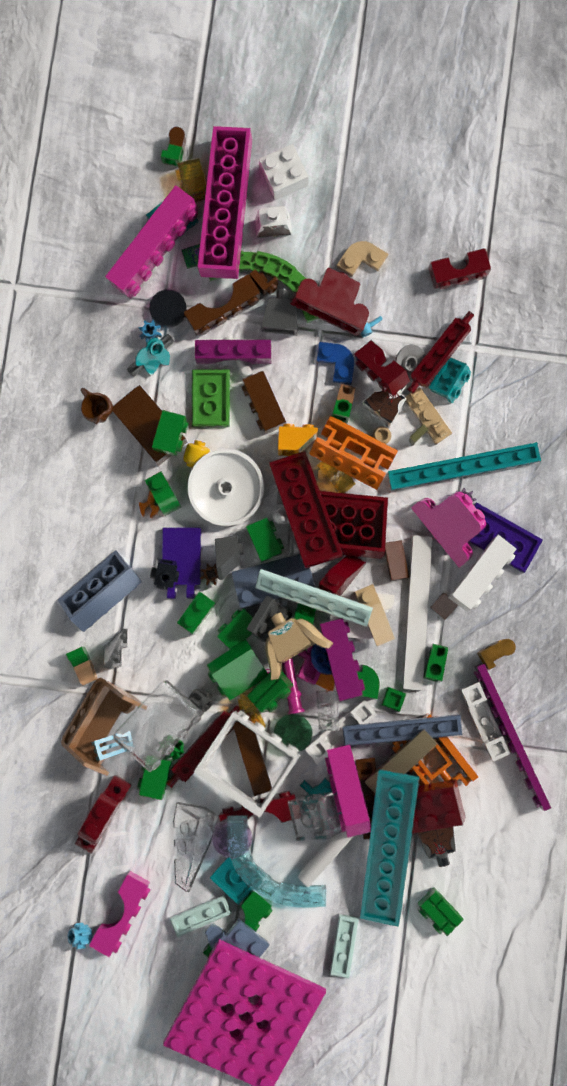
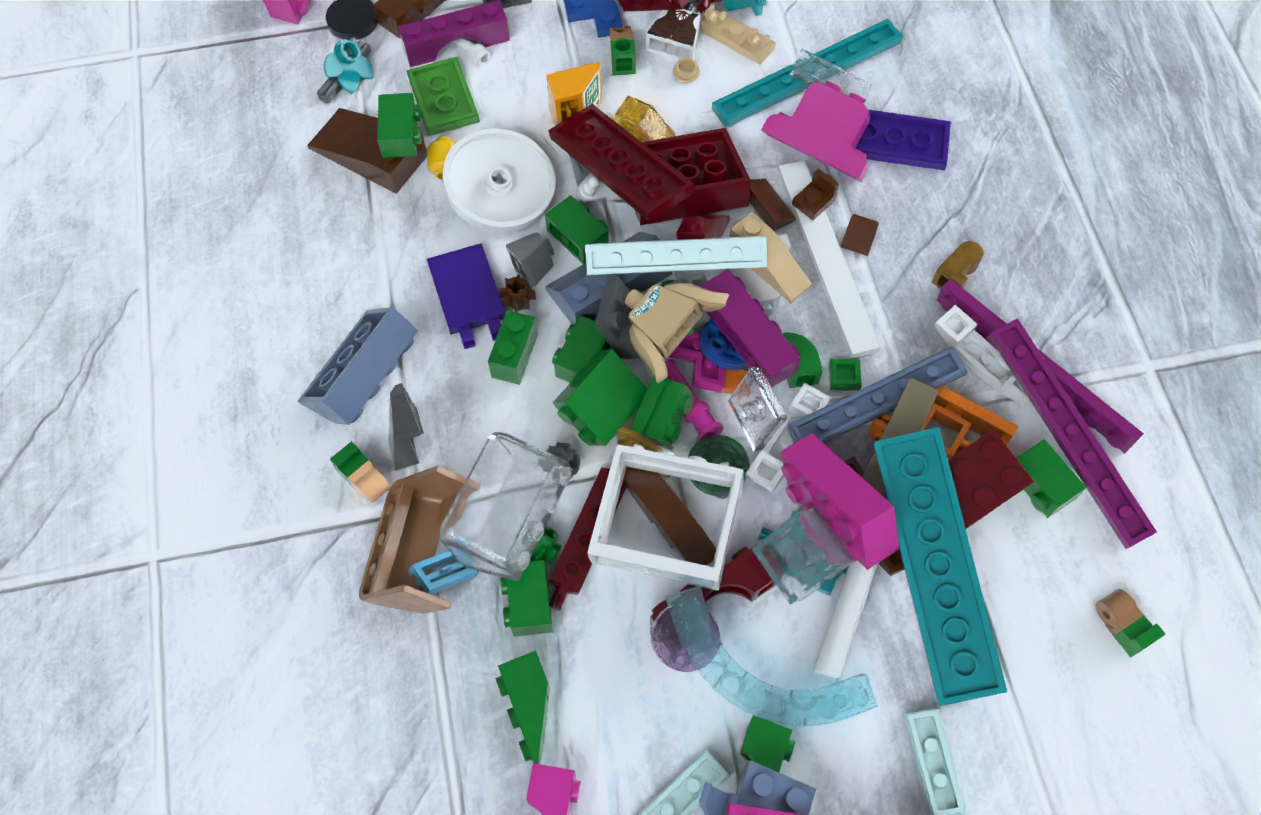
camera: 20 degrees left, 20 degrees down
(96, 406) = (285, 141): reddish brown hair -> none
(102, 814) = (457, 687): dark red brick -> none
(138, 828) = (529, 695): none -> green slope
(150, 501) = (399, 236): orange bar -> none
(154, 329) = (331, 37): dark azure gear -> none
(163, 493) = (416, 212): green brick -> none
(164, 567) = (447, 303): black brick -> none
(194, 835) = (622, 672): clear wedge -> none
(230, 882) = (710, 717): teal plate -> none
(263, 402) = (514, 76): reddish brown brick -> none
(345, 436) = (657, 87): orange fence -> none
(418, 434) = (733, 54): olive tile -> none
(426, 570) = (816, 195): none -> reddish brown bracket
(436, 663) = (883, 308): green leg -> none
(438, 844) = (1003, 542): torso -> none
(440, 911) = (1059, 649): green brick -> none
(475, 480) = (814, 69): none -> clear tile
(481, 811) = (1054, 481): none -> green brick
(482, 573) = (893, 173): white brick -> none
(487, 911) = (1127, 622): none -> leg
(508, 790) = (1072, 434): none -> magenta plate

